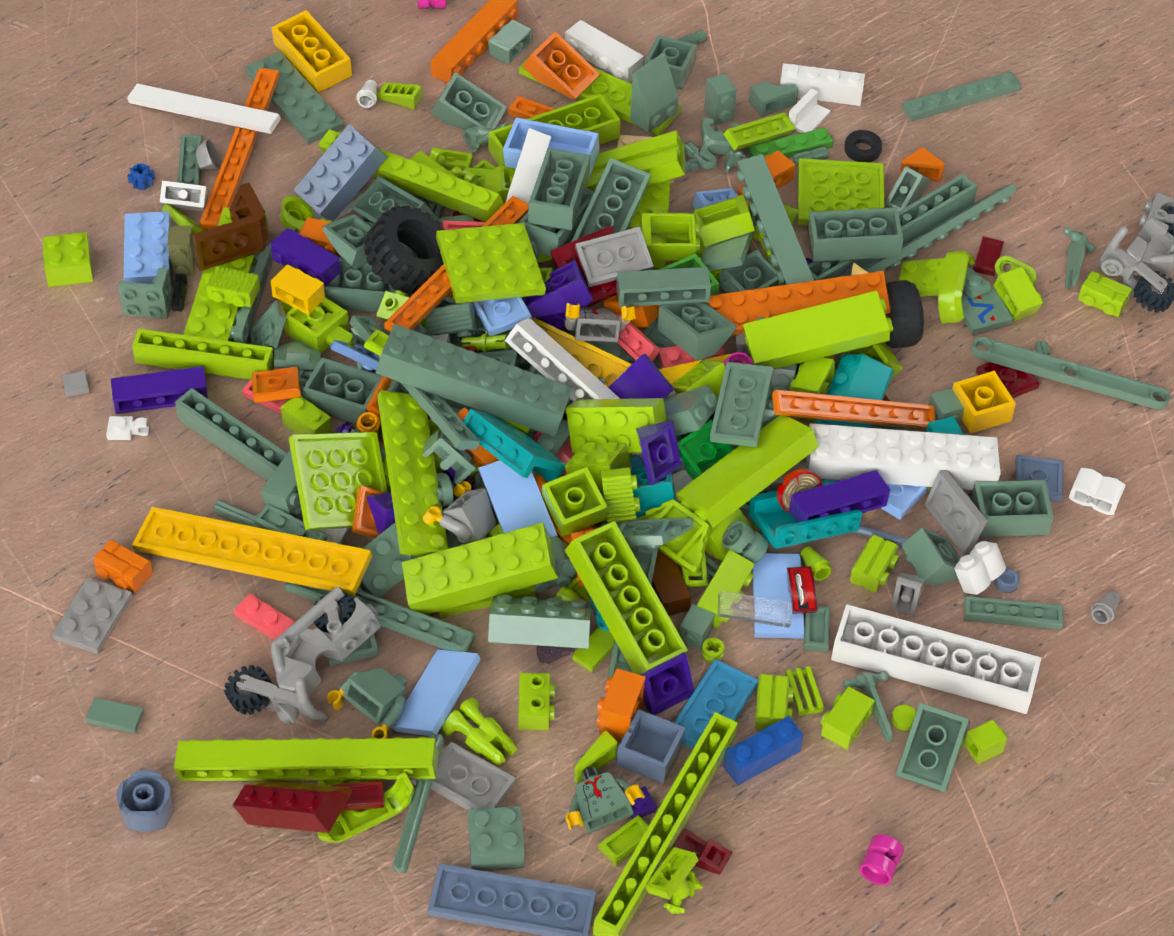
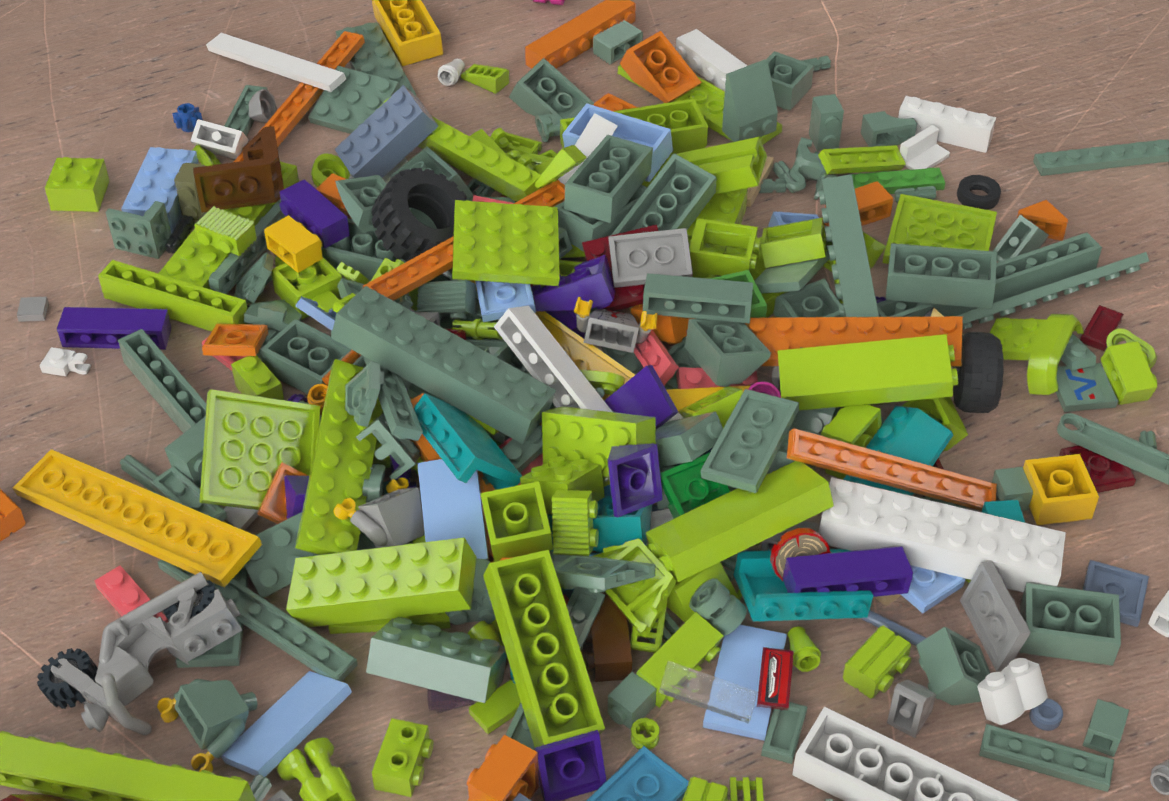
camera: 15 degrees right, 5 degrees down
(293, 140) = (352, 100): none -> sand green plate
(356, 309) = (352, 275): none -> lime tile
(420, 417) = (363, 392): none -> sand green plate
(522, 179) = (563, 162): none -> lime slope
(605, 371) = (607, 381): none -> lime plate
(1052, 582) = (1106, 727): none -> sand green brick

